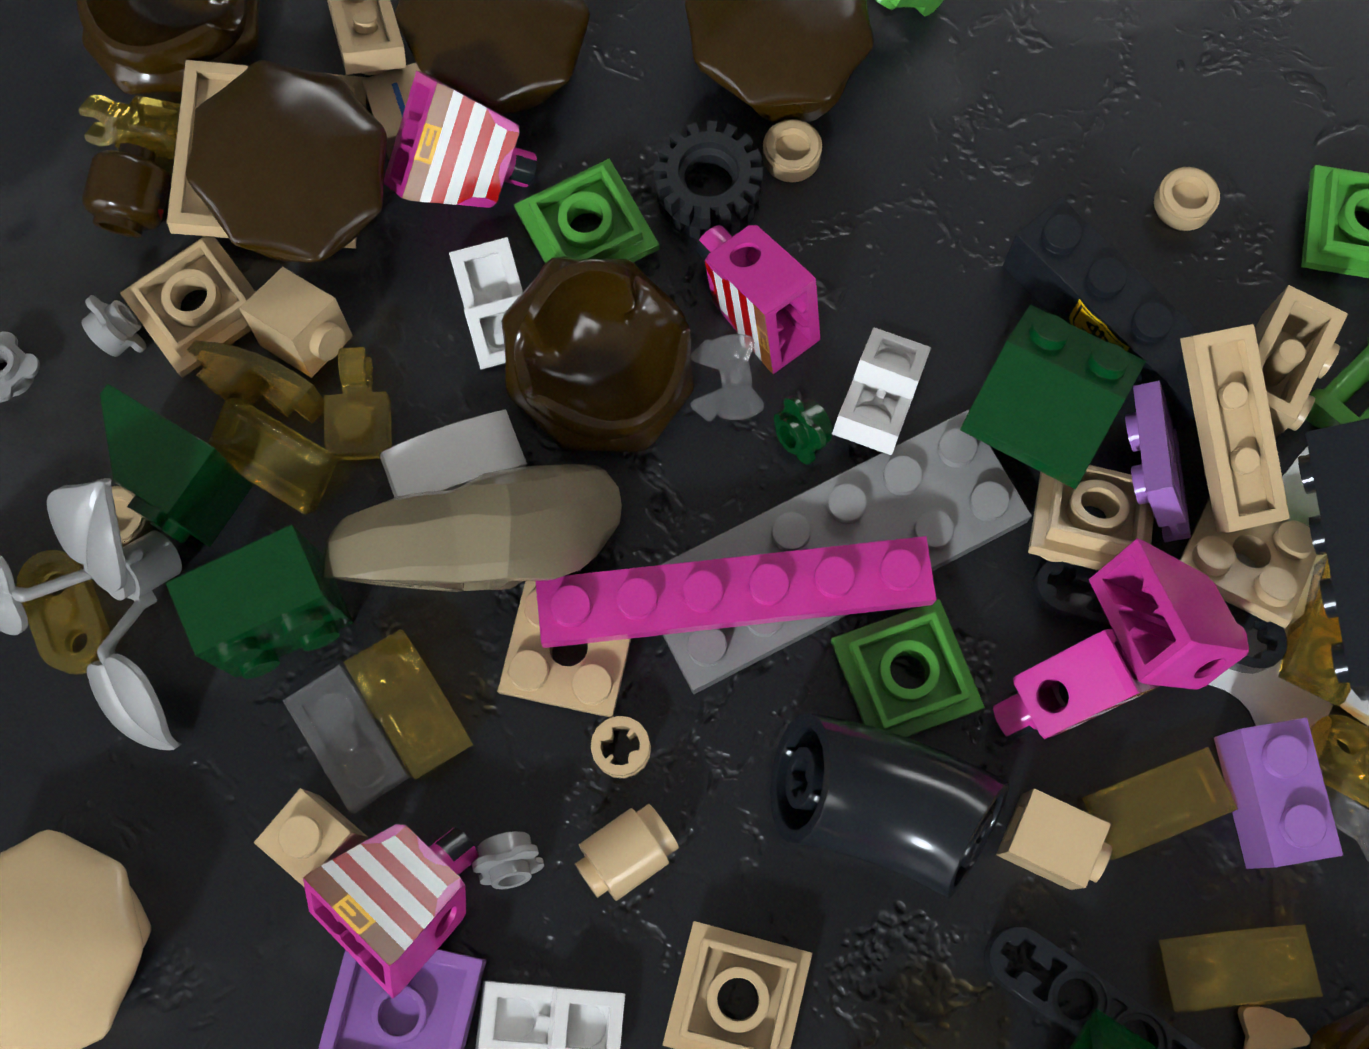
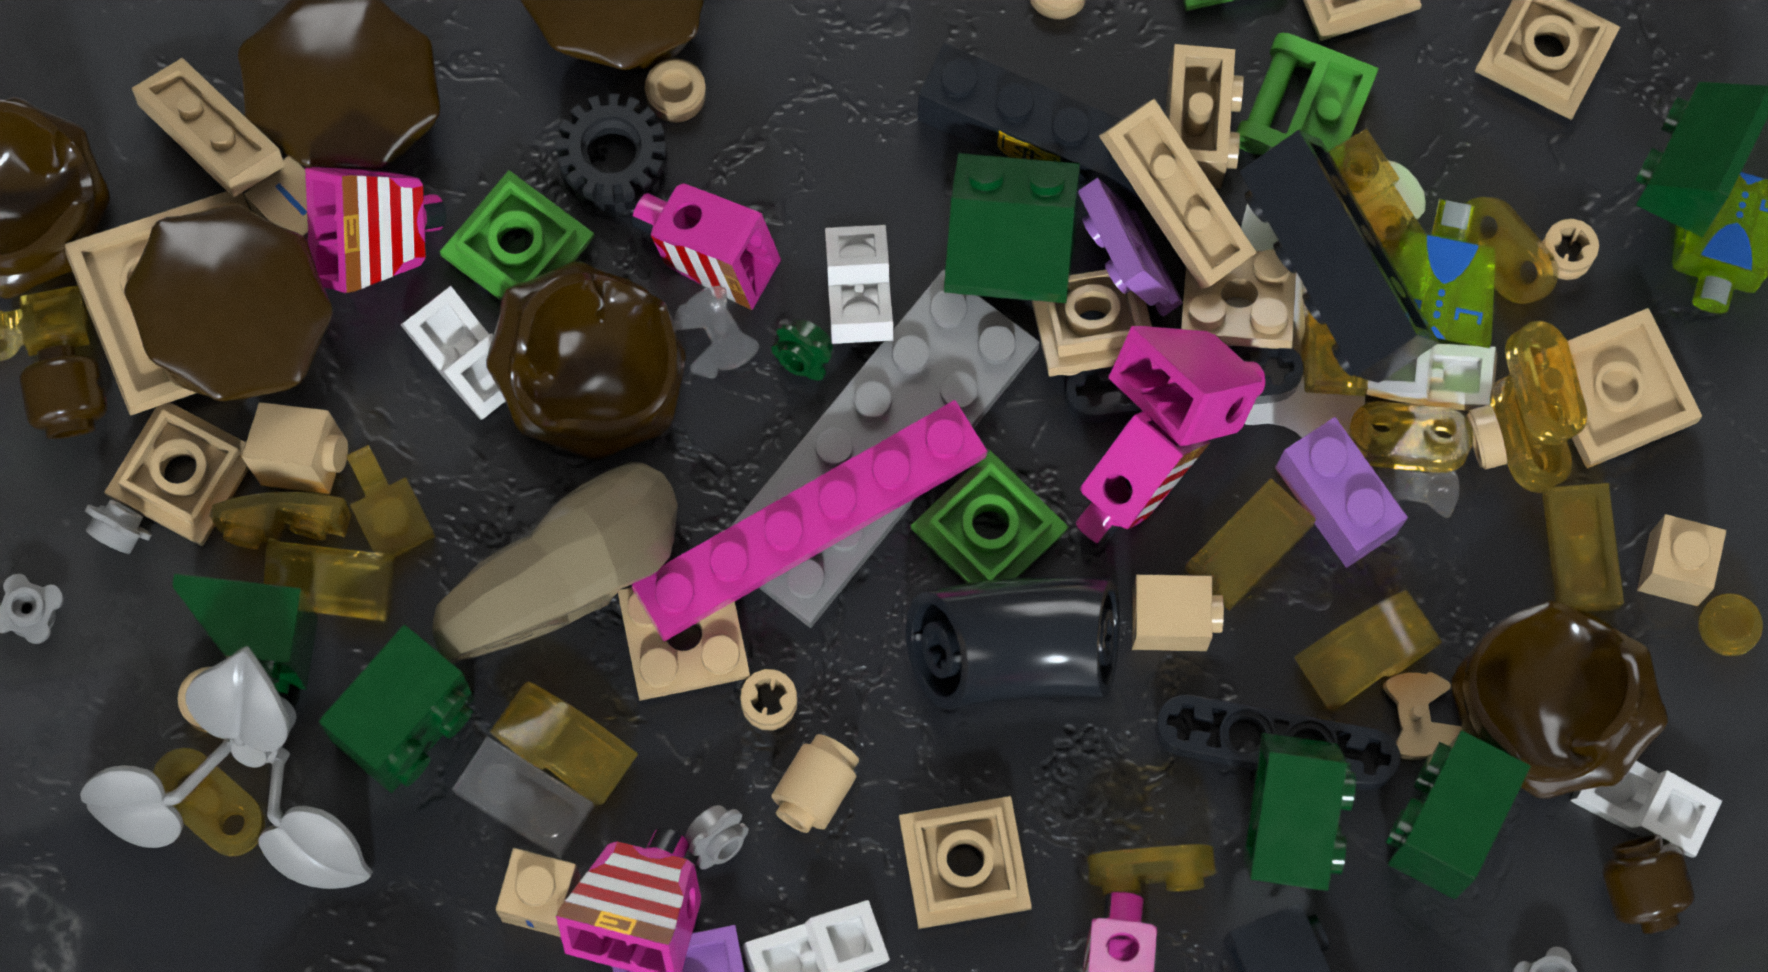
camera: 30 degrees left, 0 degrees up
(453, 455) = (498, 510): white slope -> none

